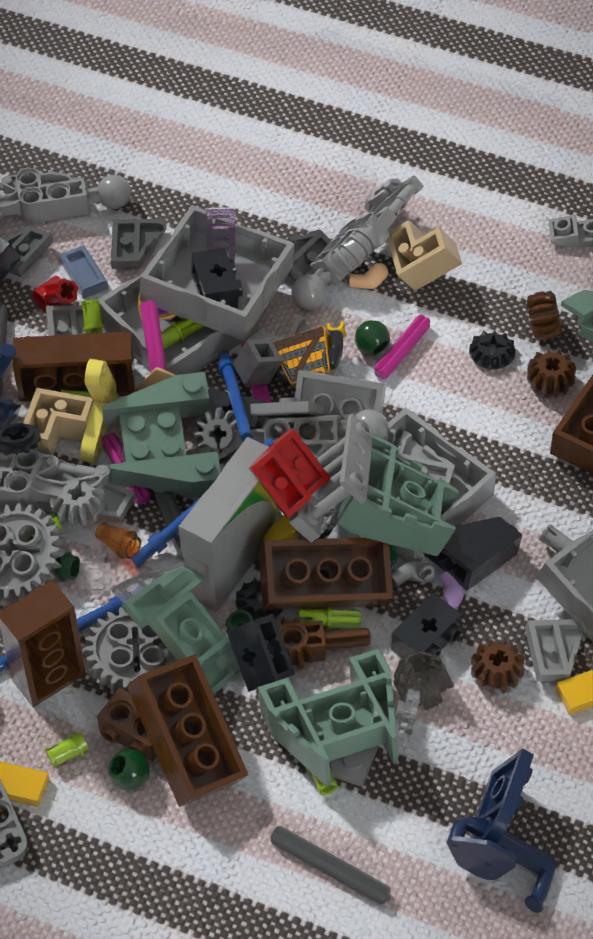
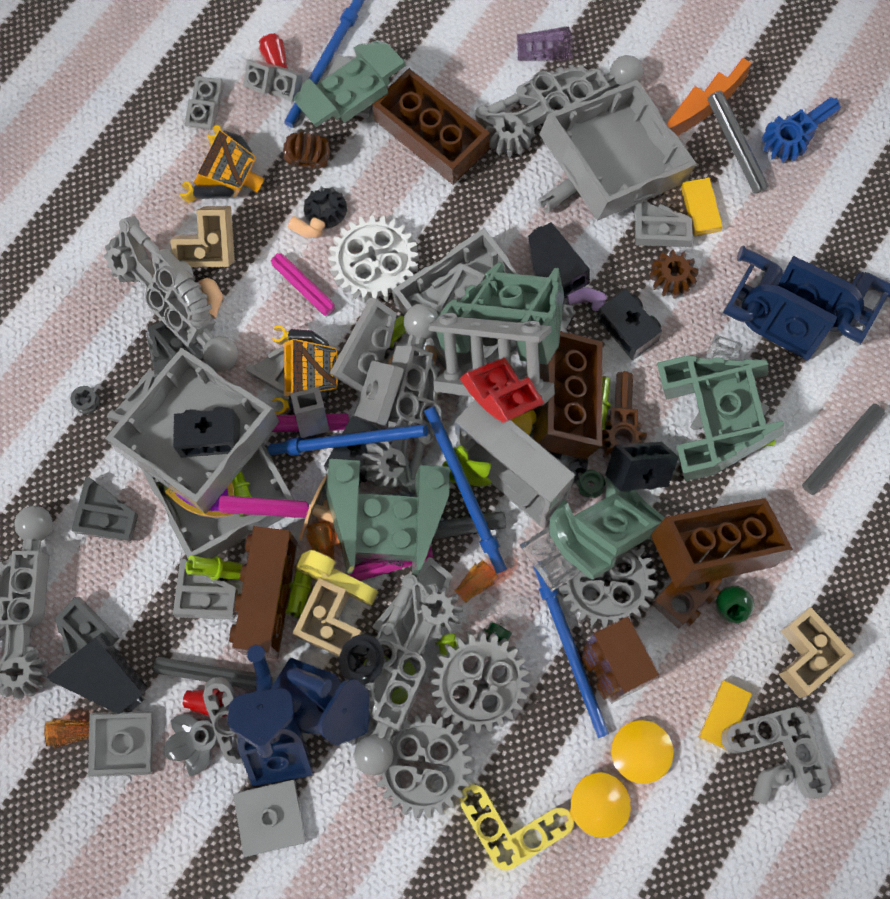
camera: 75 degrees left, 20 degrees up
(55, 292) = (158, 601): red piece -> none
(67, 749) = (700, 659): lime pin -> none
(83, 271) = (127, 572): sand blue tile -> none
(88, 851) = (819, 653): none -> tan brick
(229, 213) = (134, 417): clear purple slope -> none
(243, 199) = (85, 408): none -> dark grey bush
(372, 337) = (289, 307): dark green piece -> none
(425, 674) = (681, 336): clear smoke hair -> none
(444, 394) = (366, 237): none -> white gear
(462, 339) = (307, 230): none -> light nougat arm
(475, 729) = (776, 311): none -> dark blue plate
(507, 256) = (224, 169): none -> torso
(551, 373) = (359, 160): reddish brown gear -> none

